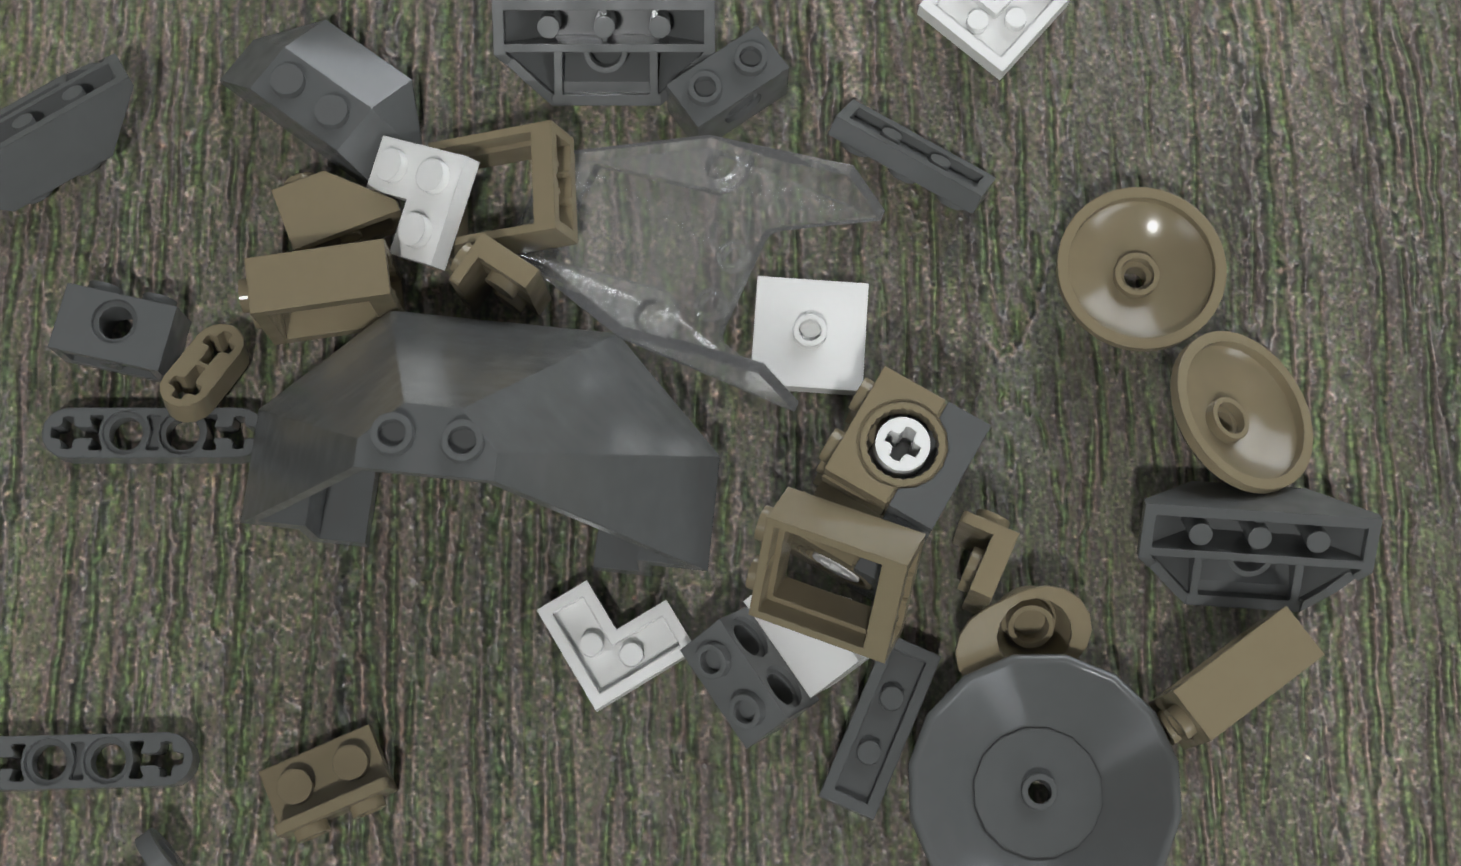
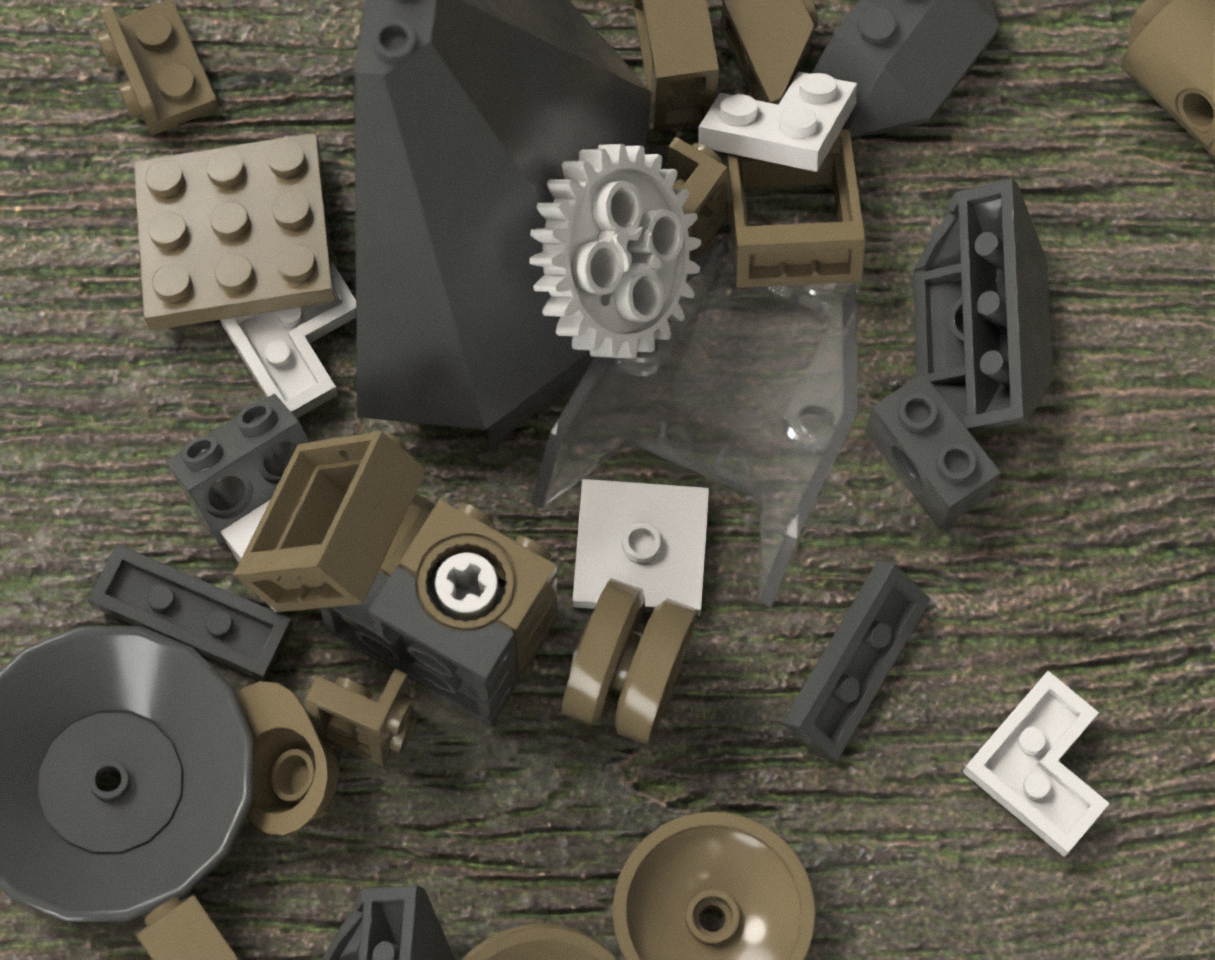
camera: 90 degrees right, 5 degrees down
(509, 700) = (233, 232): none -> plate
(582, 315) = (615, 251): none -> white gear
(930, 331) = (620, 658): none -> dark tan wheel

